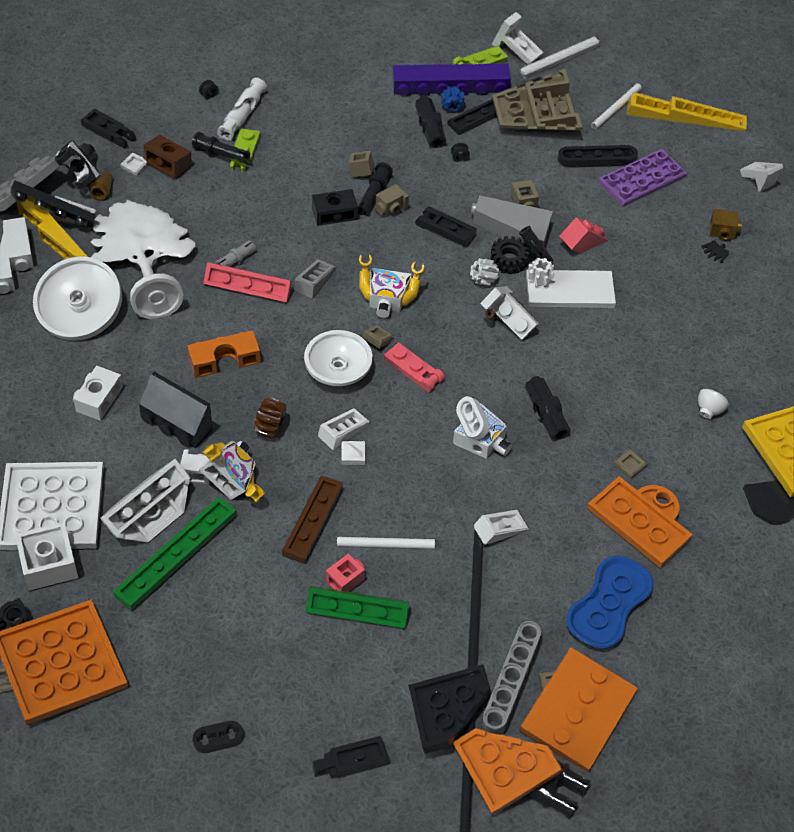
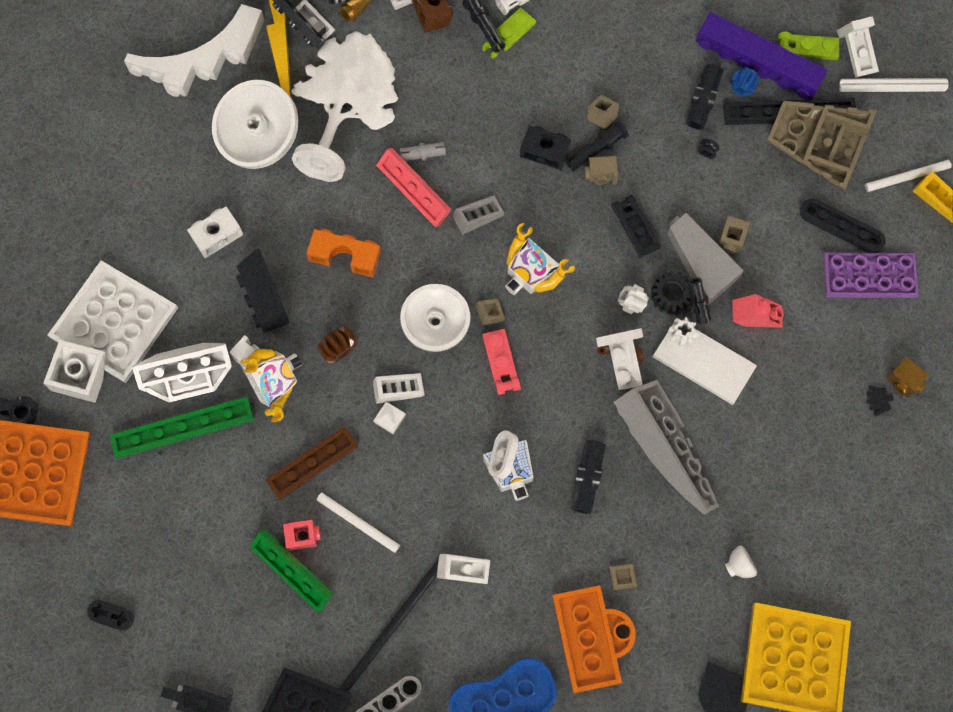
camera: 35 degrees right, 20 degrees up
(576, 350) = (658, 432): none -> light grey wedge

